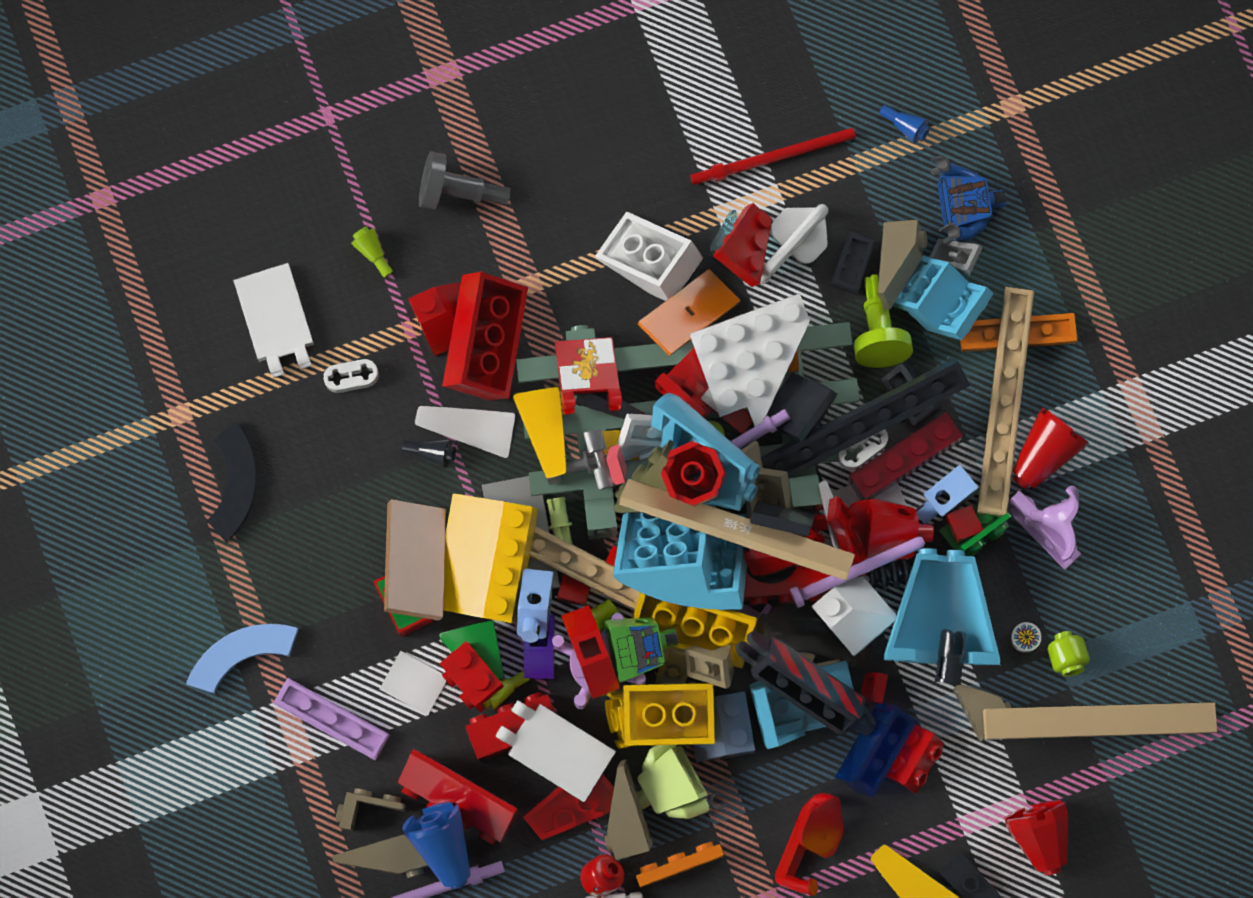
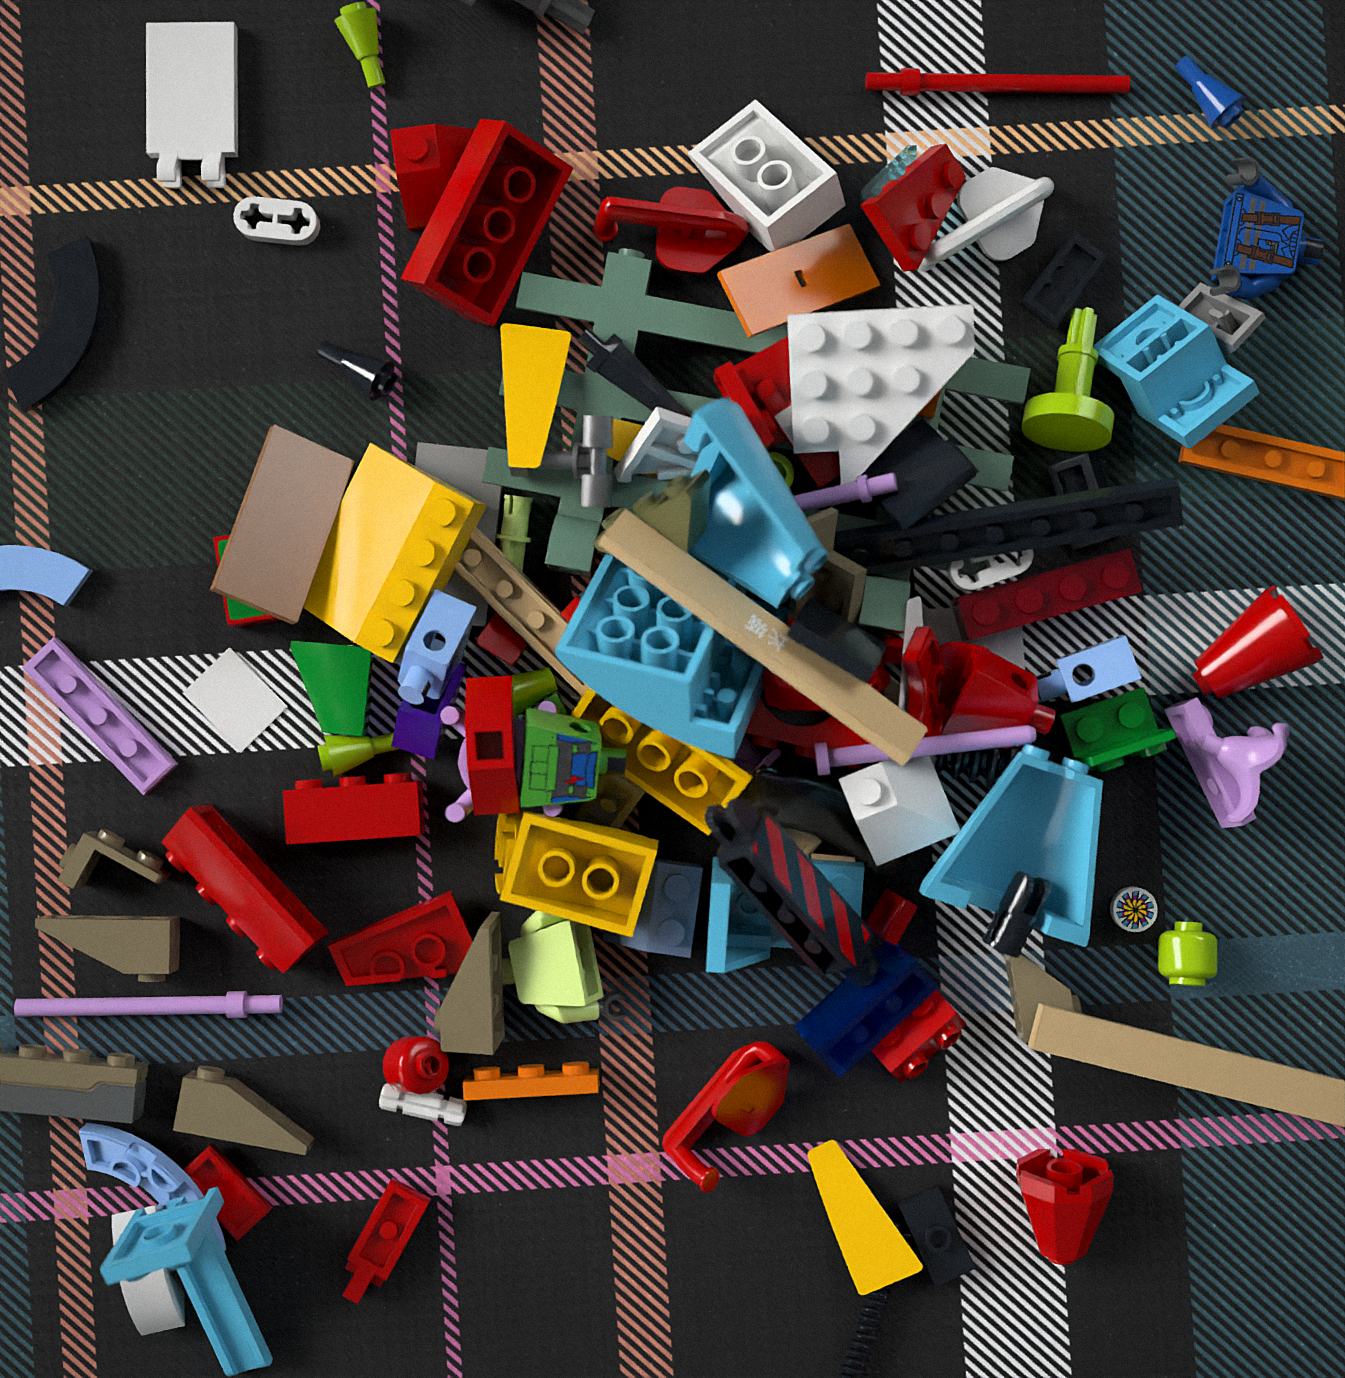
camera: 10 degrees right, 10 degrees up
(441, 843) = (193, 950): blue cone -> none
(471, 675) = (314, 721): red bracket -> none
(478, 428) = (438, 355): white sticker -> none
(557, 750) = (403, 866): white tile -> none
(587, 368) = (620, 318): flag -> none
(611, 302) = (690, 224): none -> red piece
(616, 464) = (618, 478): coral tile -> none
(693, 473) = (723, 536): red cone -> none
(710, 666) = (662, 824): dark tan slope -> none
(900, 257) = (1137, 294): dark tan slope -> none
(963, 523) = (1100, 720): red slope -> none
(1005, 402) = (1220, 557): tan tile -> none

